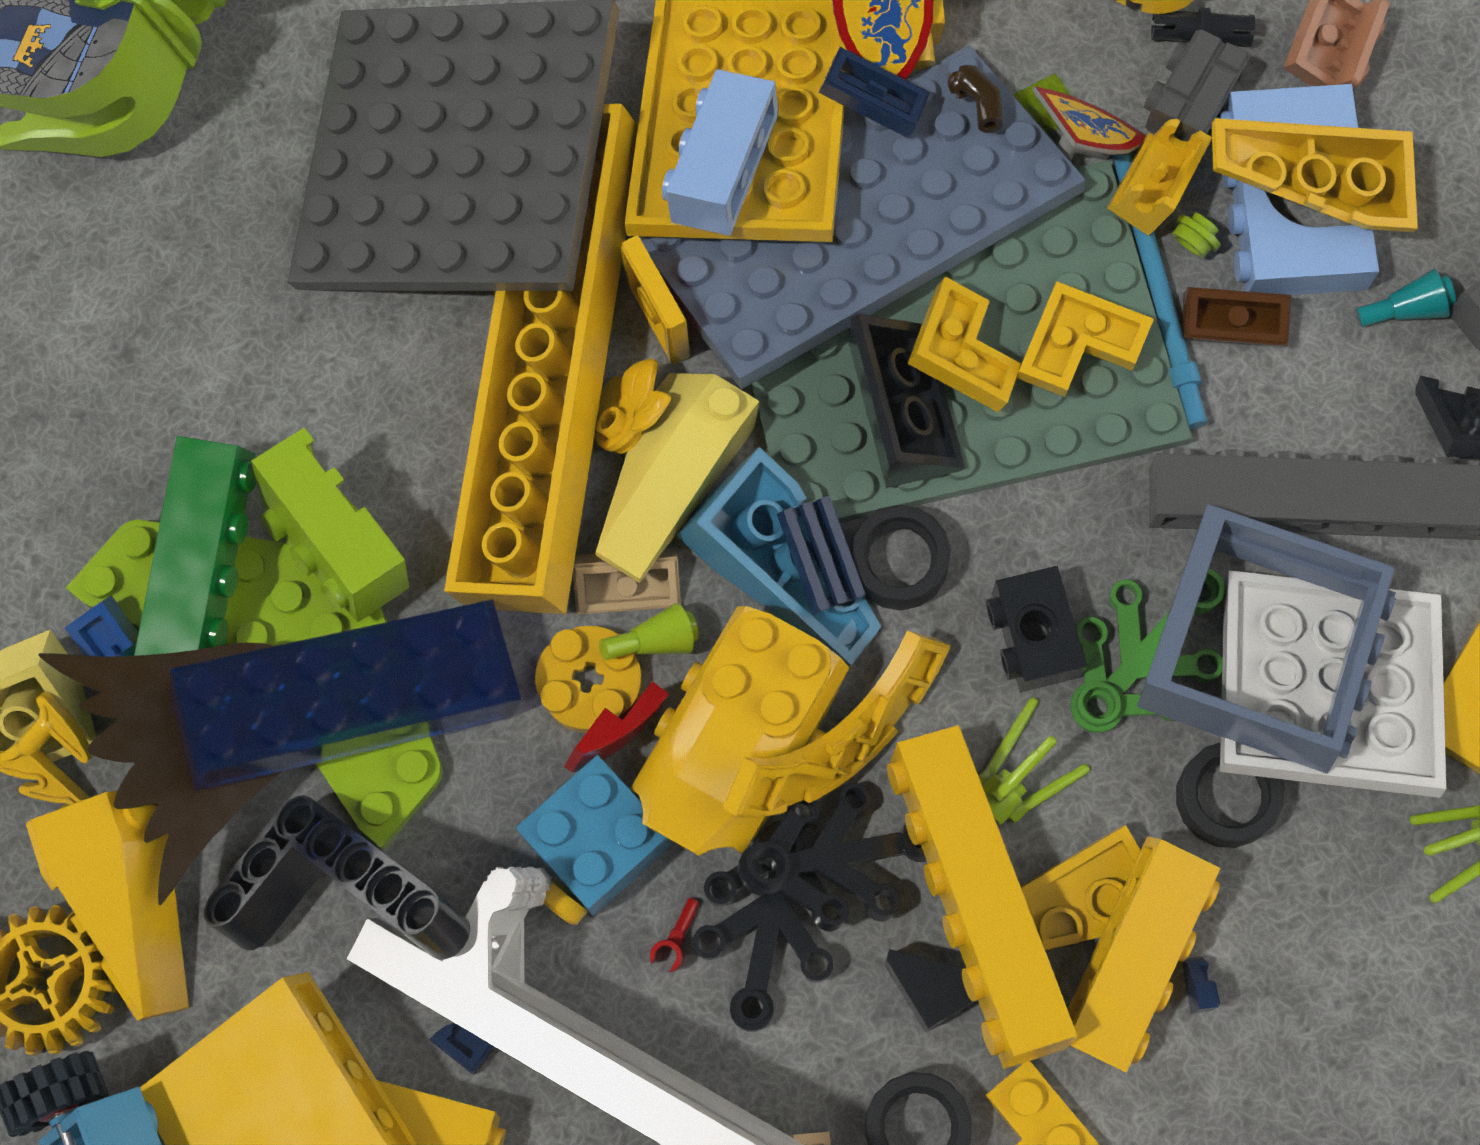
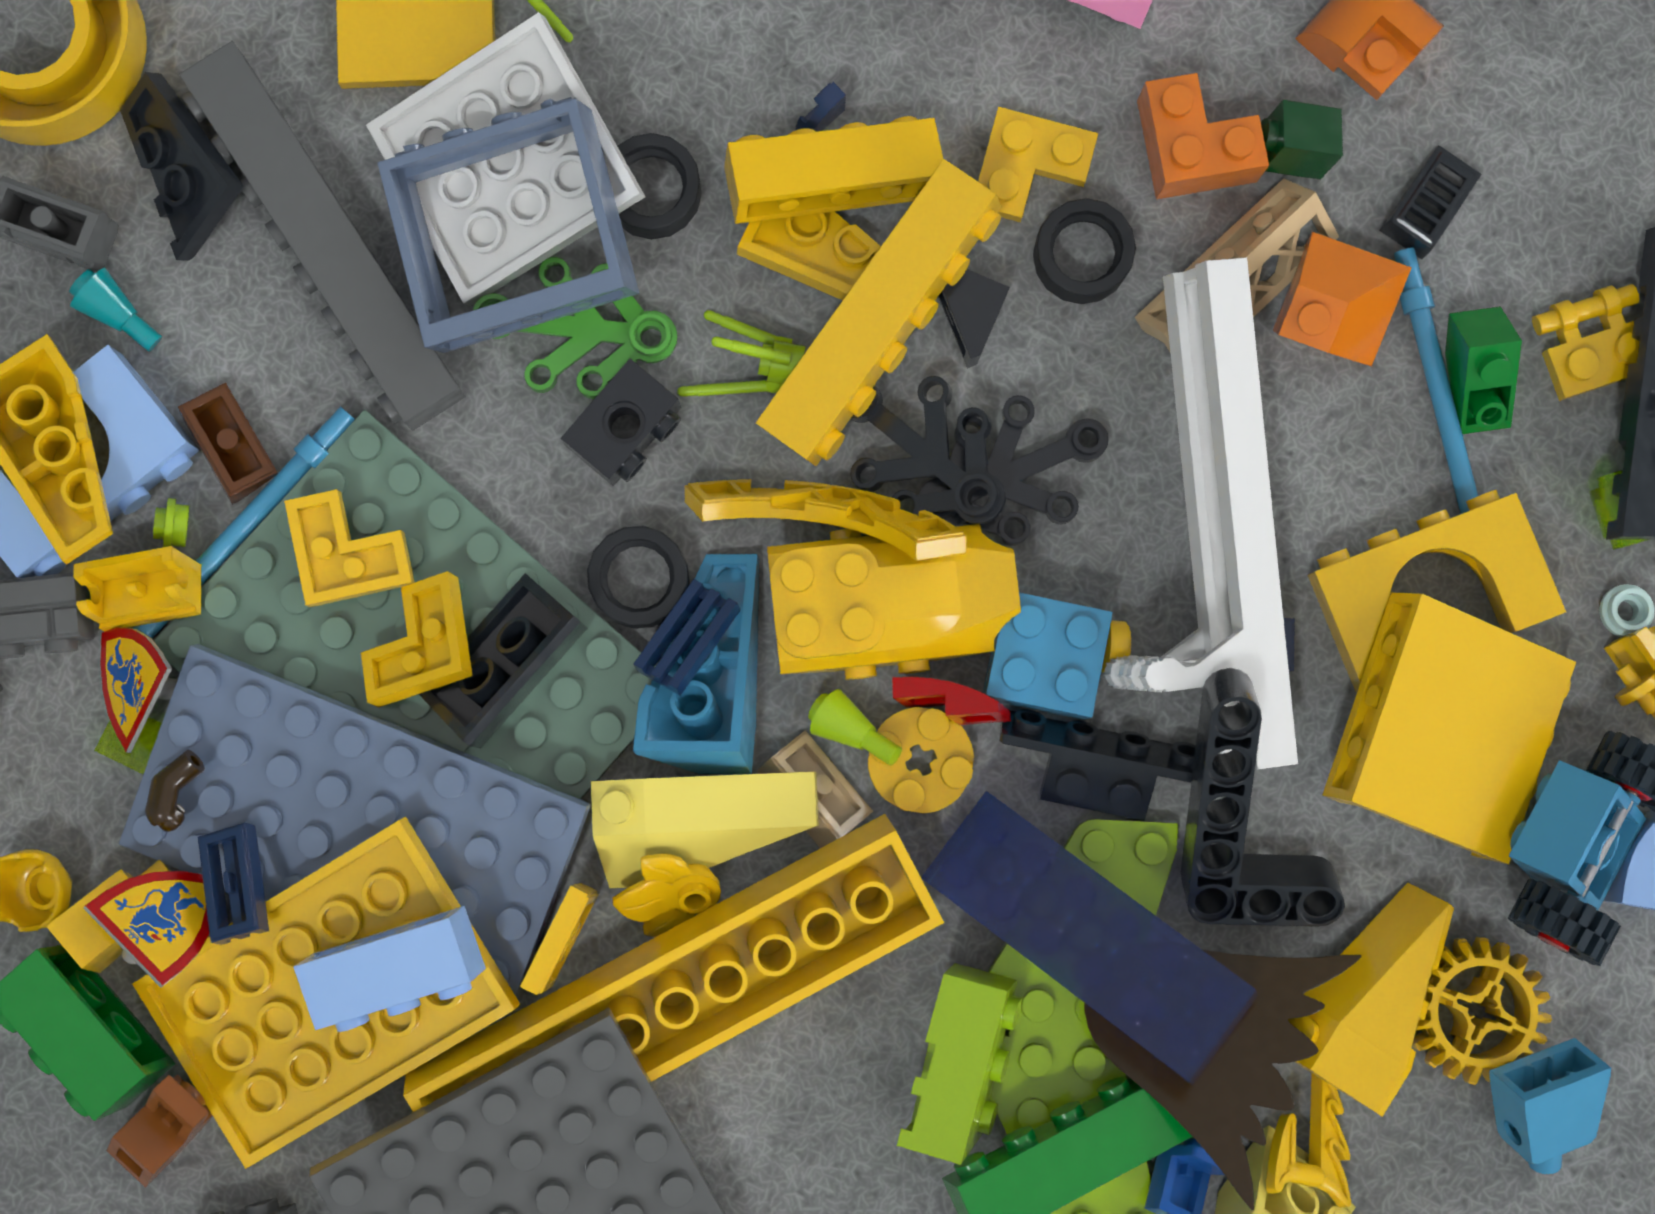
camera: 135 degrees left, 10 degrees up
(480, 815) = (1098, 766): none -> black bracket
(677, 934) = (1073, 538): red hand -> none

